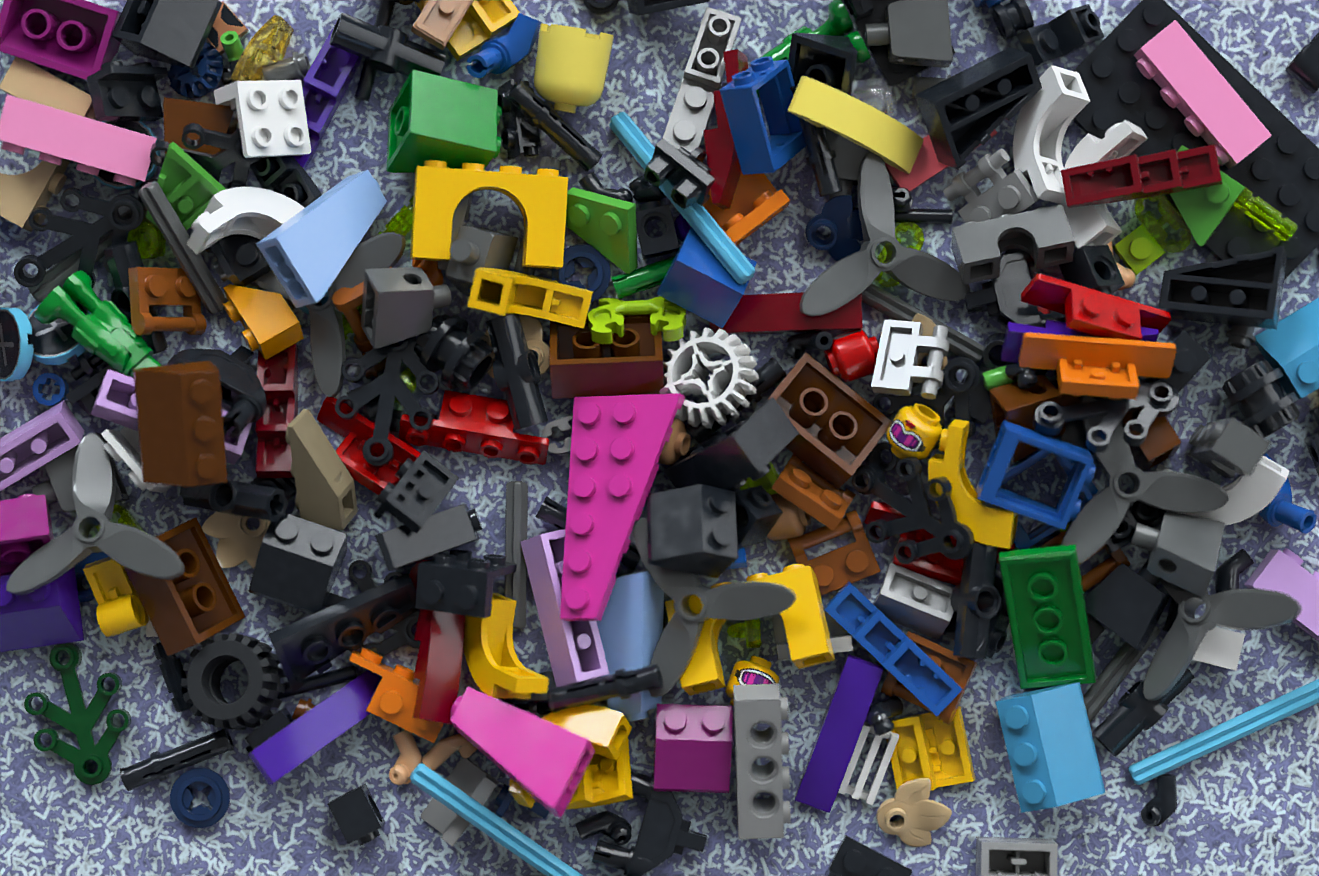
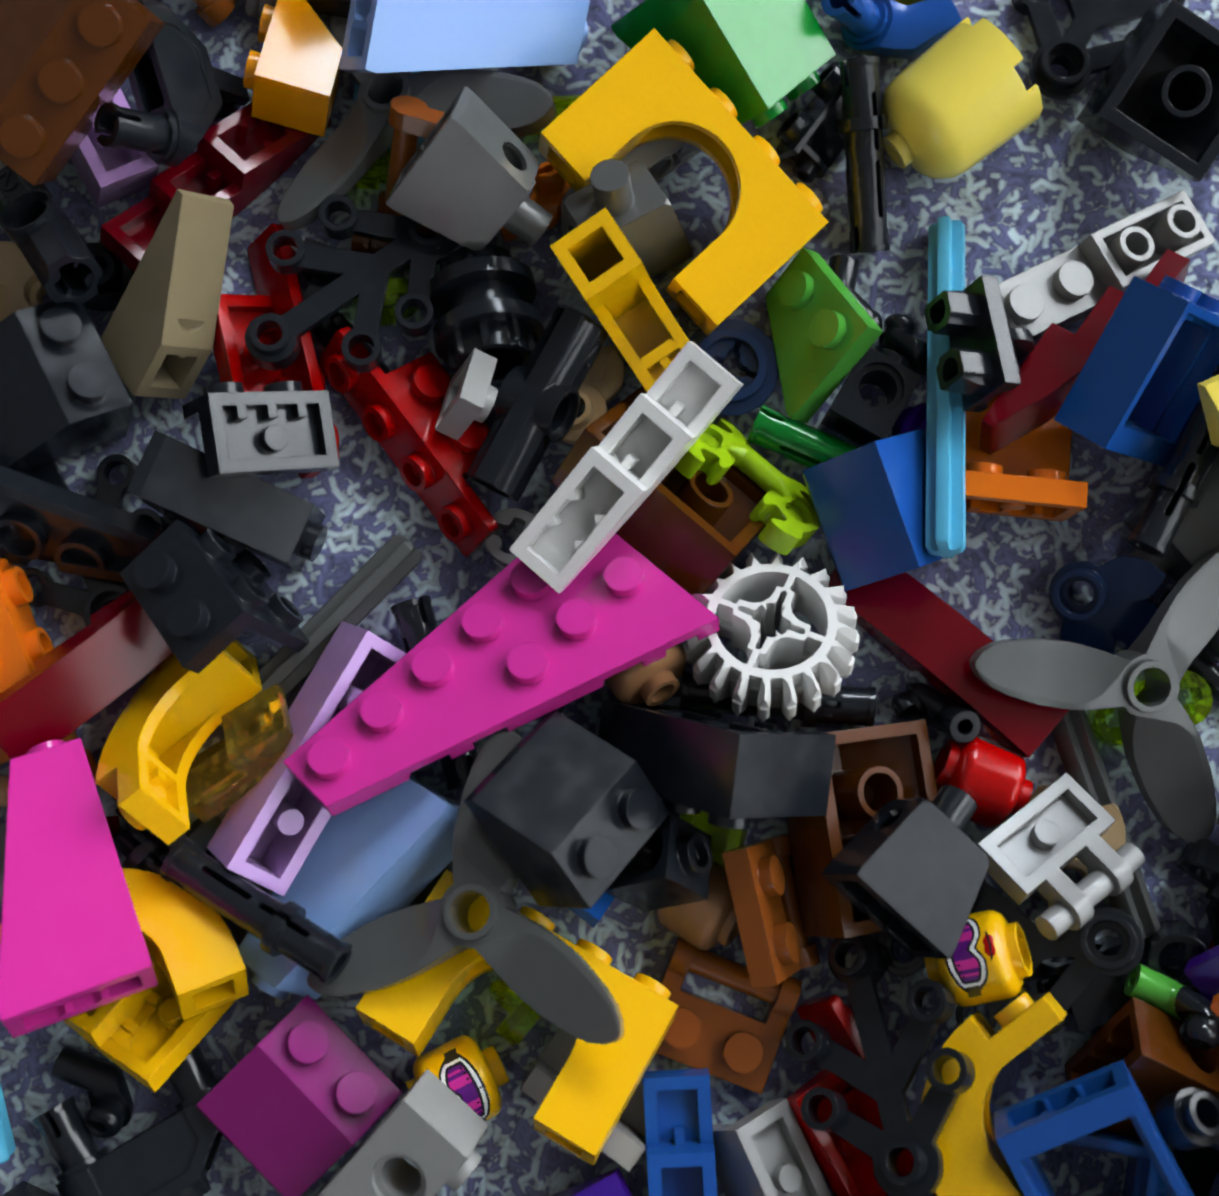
camera: 35 degrees right, 5 degrees down
(484, 396) = (468, 395): none -> light grey plate
(536, 629) = (252, 744): none -> clear yellow slope
(583, 366) = (625, 467): none -> white slope
(855, 421) = (915, 871): none -> black torso

